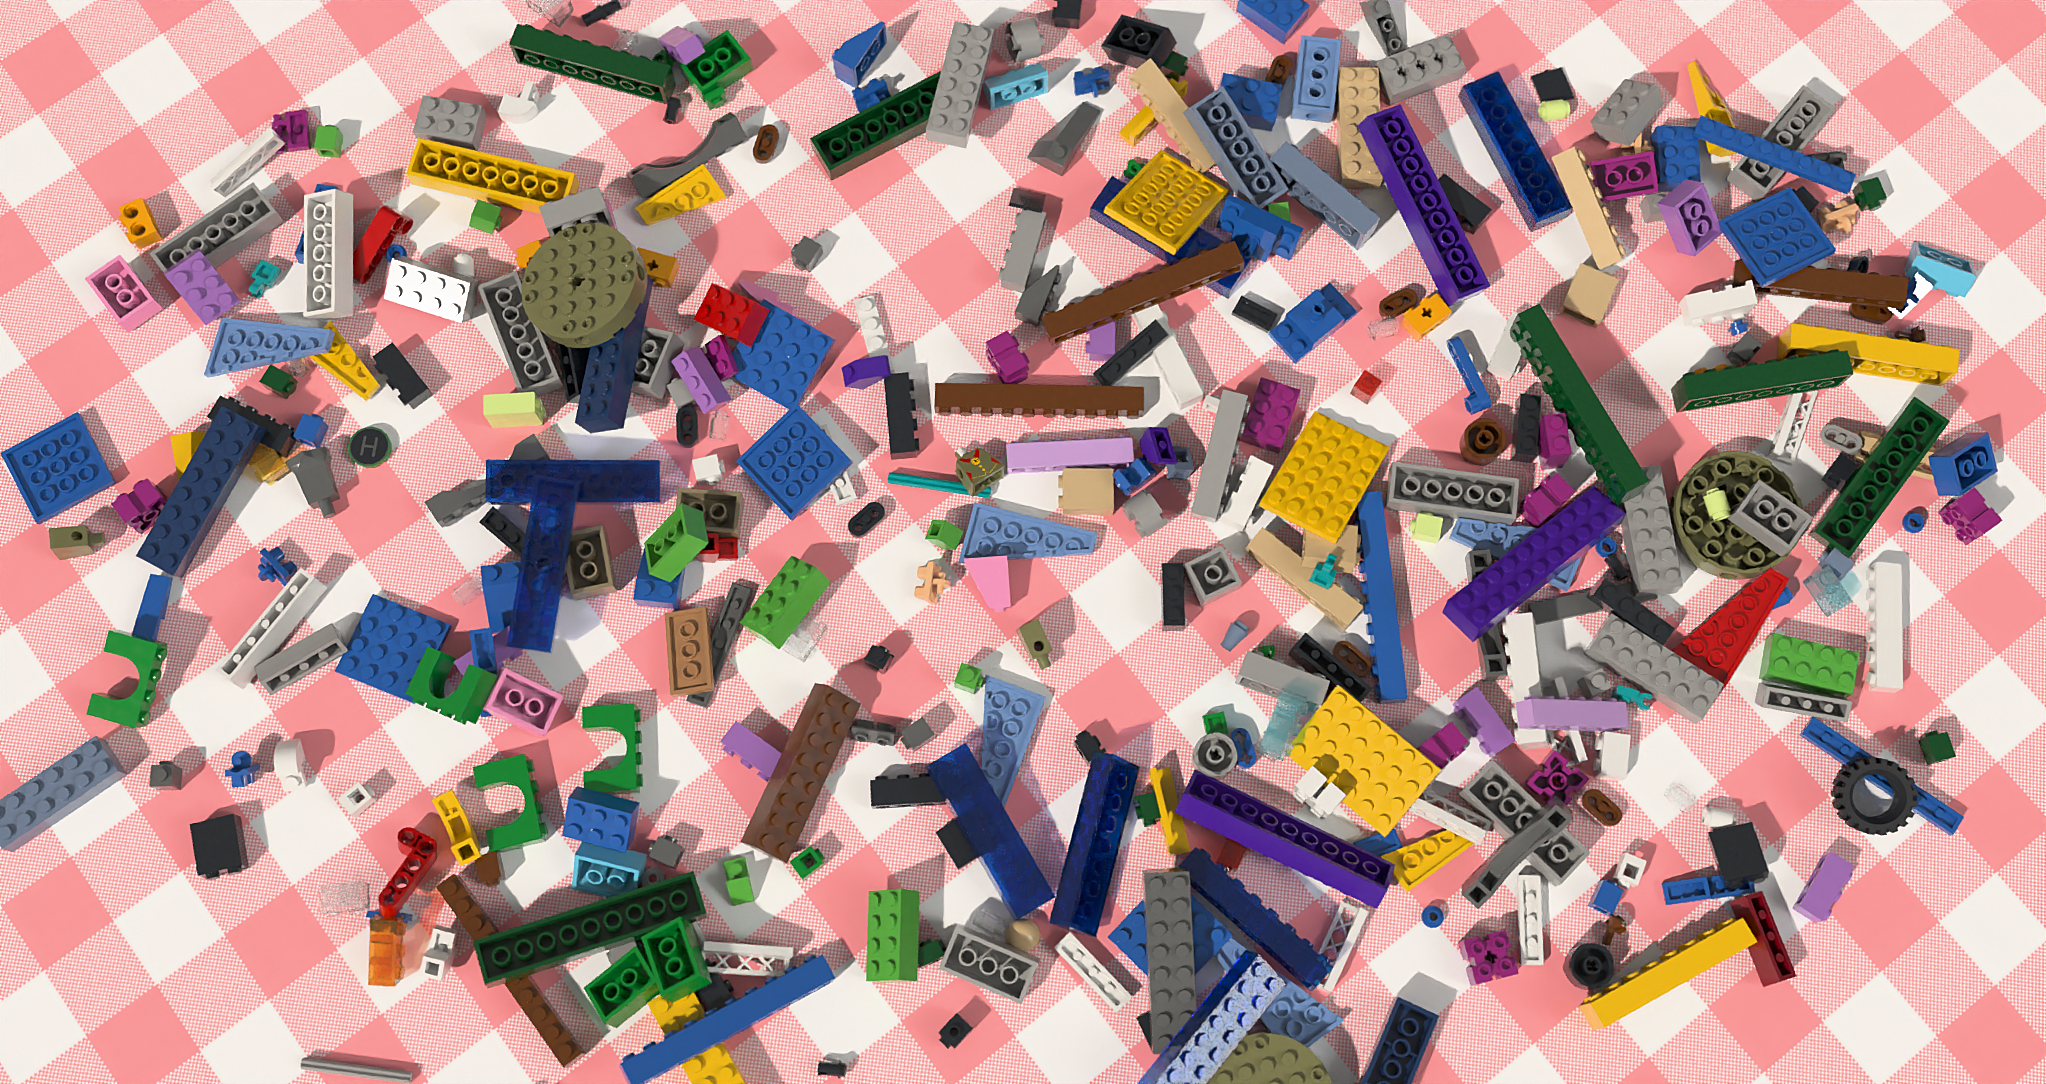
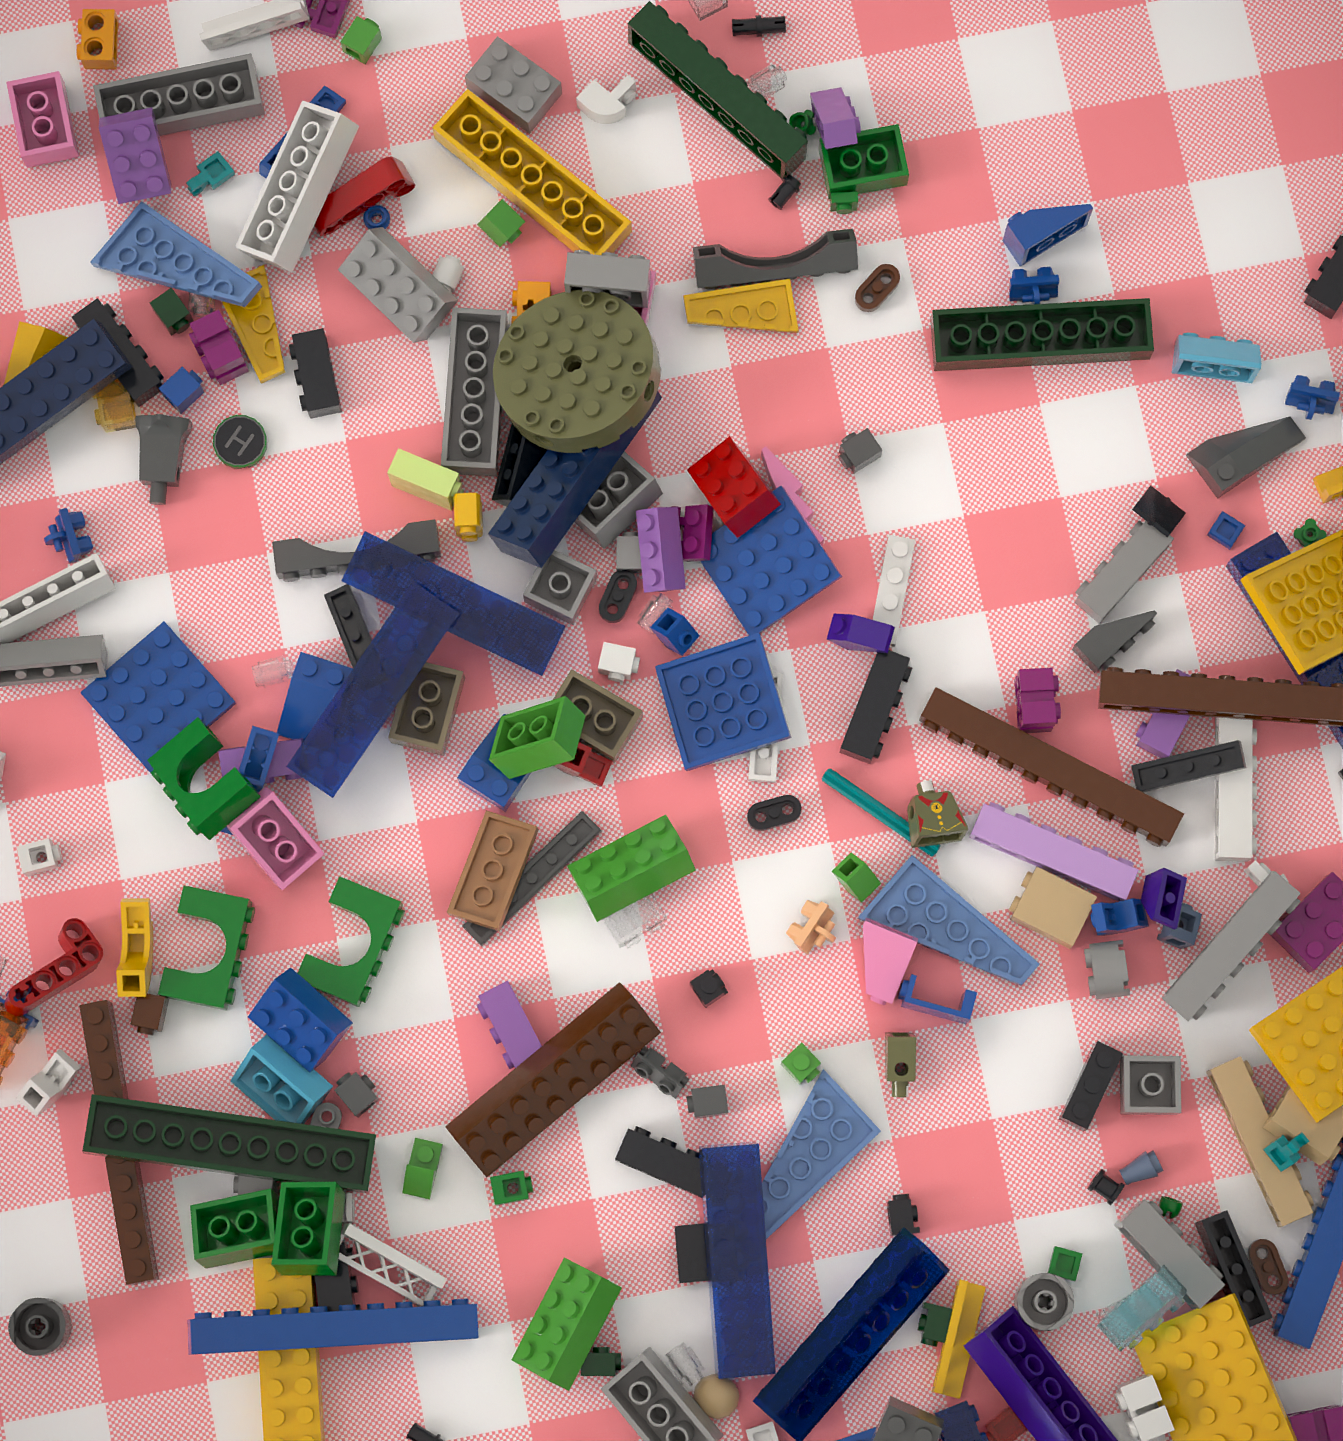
camera: 30 degrees right, 5 degrees up
(323, 389) = (221, 352): none -> magenta brick
(555, 420) = (468, 516): none -> yellow brick
(644, 437) = (560, 587): none -> light grey brick
(666, 267) = (686, 385): light orange brick -> none
(738, 430) = (674, 631): none -> blue brick
(960, 84) = (1146, 330): light grey brick -> none
(1024, 39) = (1255, 304): light grey brick -> none
(1042, 596) = (961, 1015): none -> blue panel
(1078, 193) = (1226, 530): none -> blue tile
(1216, 659) = (1106, 1186): none -> black bush
(1247, 494) = (1242, 1007): white wedge -> none
(1248, 747) = (1090, 1309): blue beam -> none

